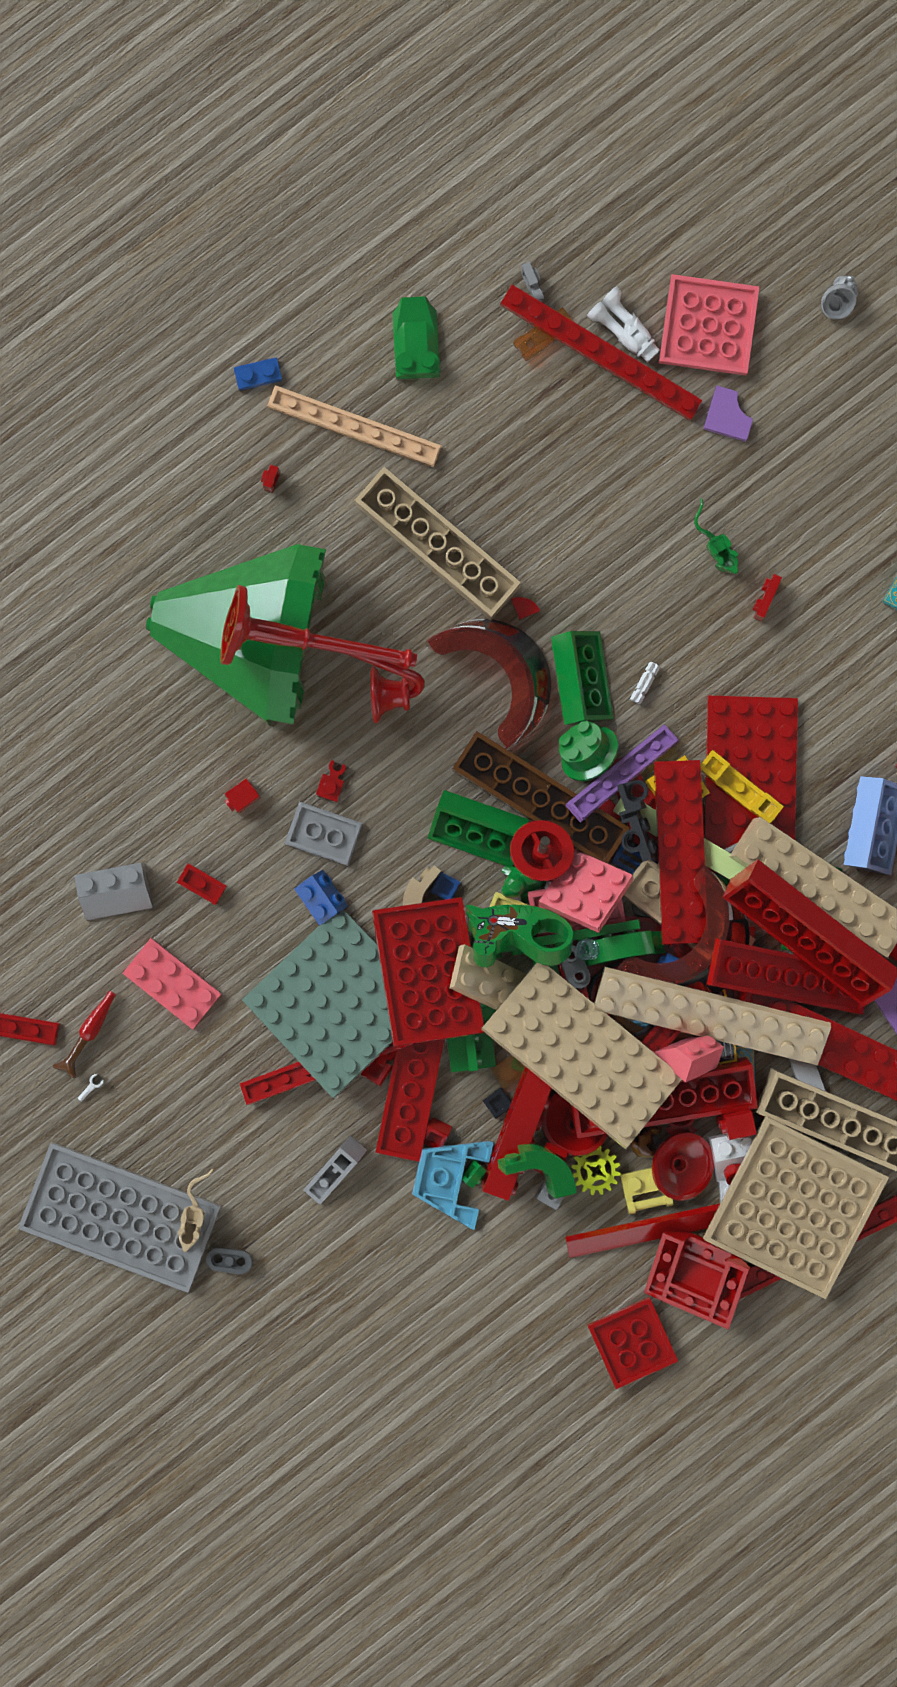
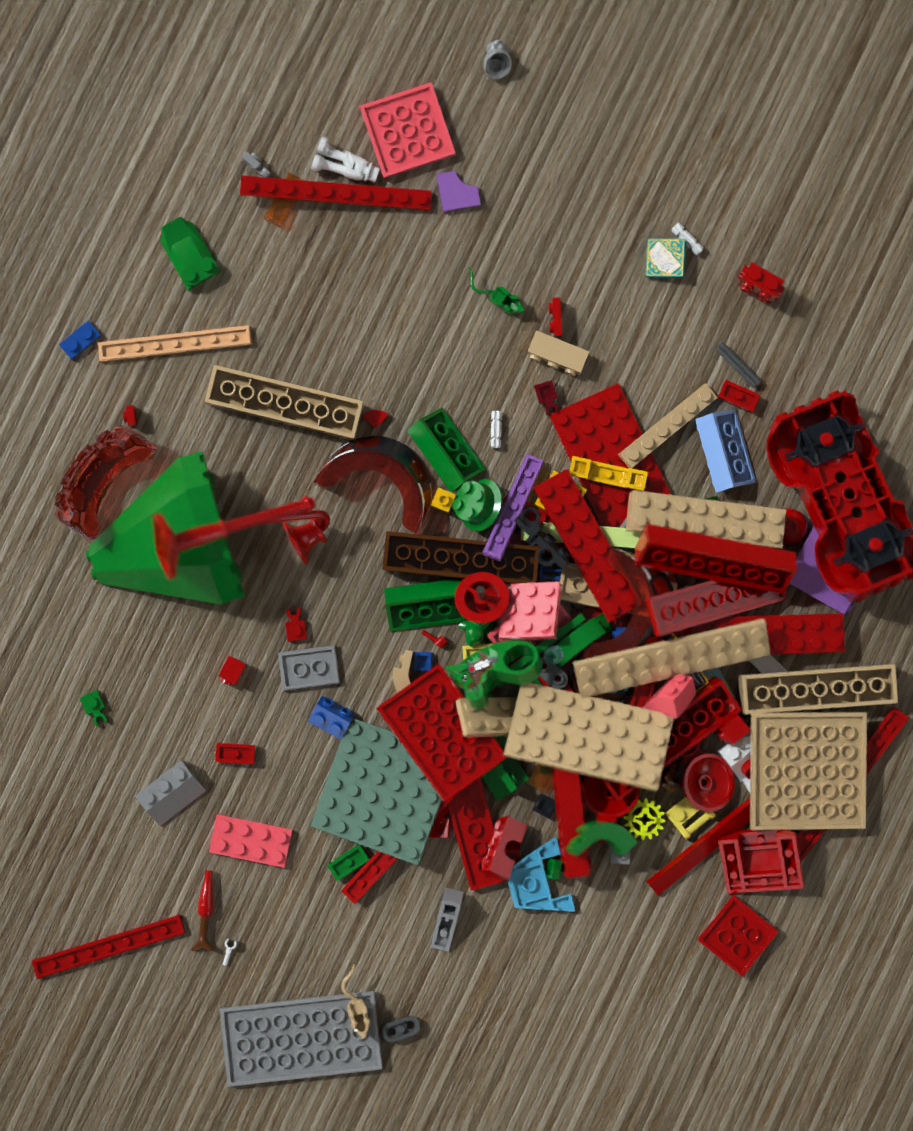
camera: 30 degrees left, 0 degrees up
(80, 758) = (93, 704): none -> green plate
(201, 518) = (93, 474): none -> clear red windscreen
(262, 1057) = (348, 862): none -> green plate
(417, 1136) = (496, 862): none -> red arch
(474, 876) = (441, 642): none -> red hand
(552, 729) = (443, 500): none -> yellow brick
(716, 671) = (546, 393): none -> dark red plate
(749, 635) = (557, 353): none -> tan brick
(827, 769) = (667, 426): none -> tan plate

